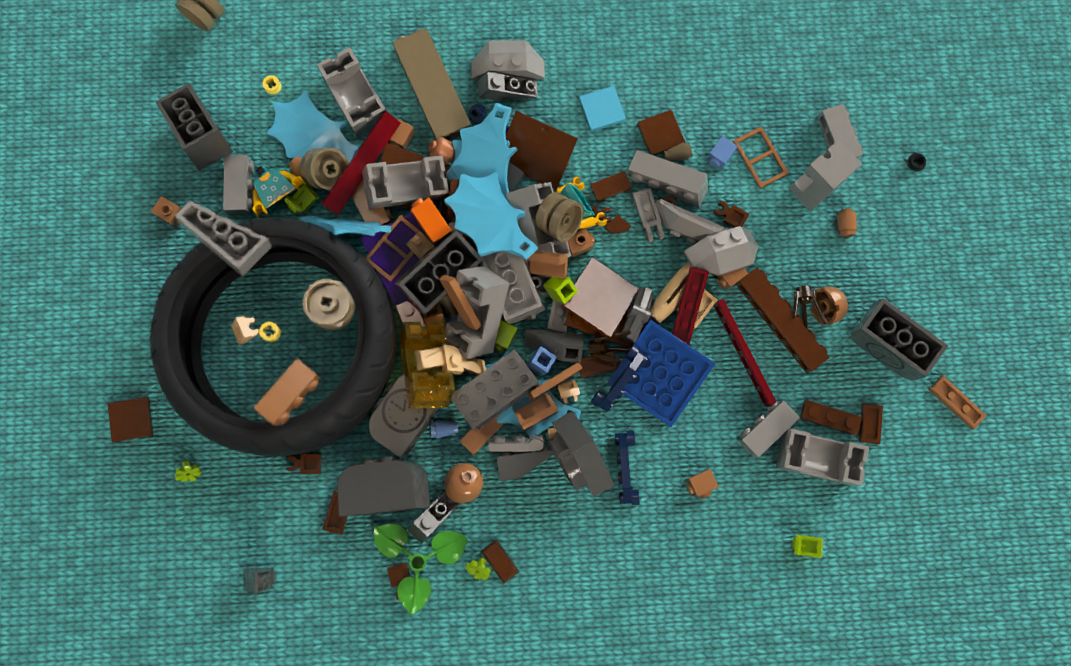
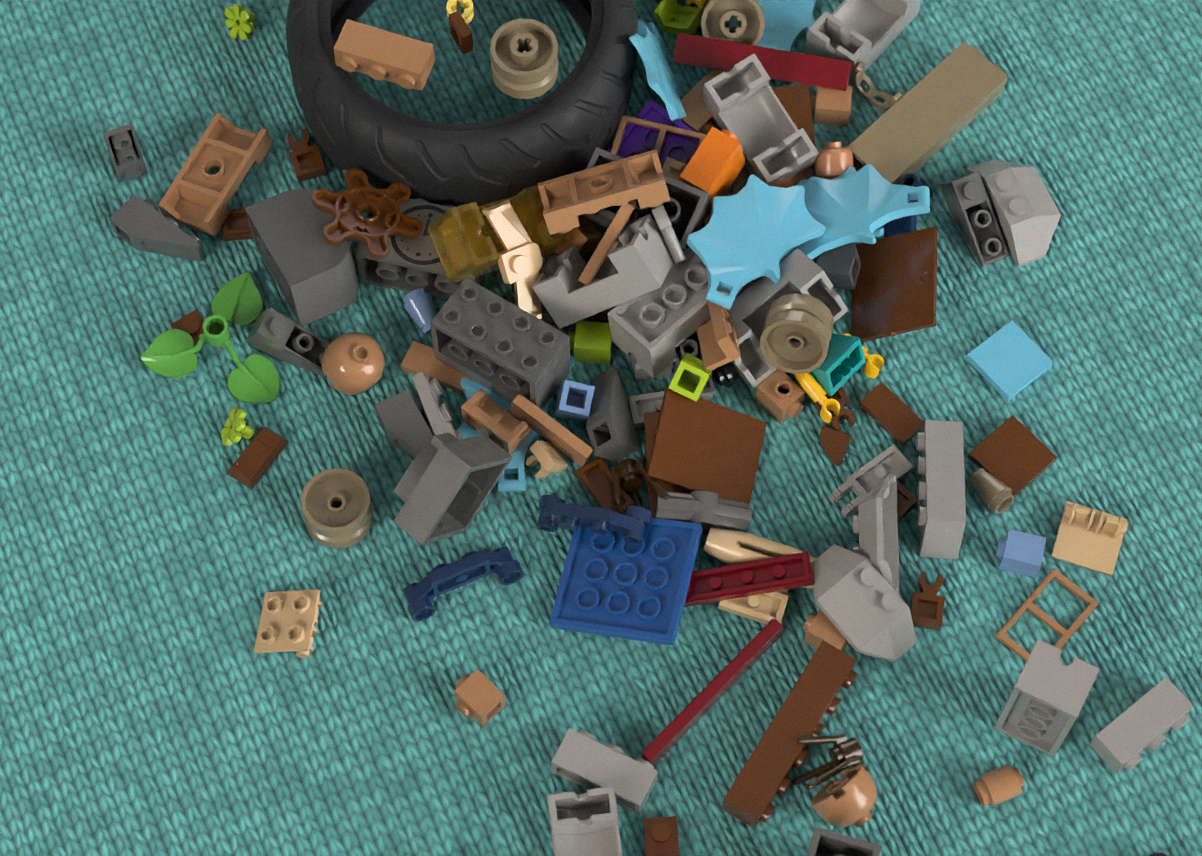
camera: 75 degrees right, 15 degrees down
(289, 337) = (460, 32): none -> reddish brown tile
(311, 540) = (202, 198): none -> medium nougat piece
(318, 581) = (151, 232): none -> dark grey slope
(375, 430) = (362, 197): none -> reddish brown plate
(410, 102) = (860, 77): none -> dark tan cap
(437, 271) = (602, 187): none -> medium nougat piece
(466, 264) = (668, 234): none -> light grey bar
(566, 534) = (337, 508): none -> dark tan wheel
(615, 578) = (288, 622): none -> tan hinge
(723, 113) = (1089, 538): none -> tan hinge

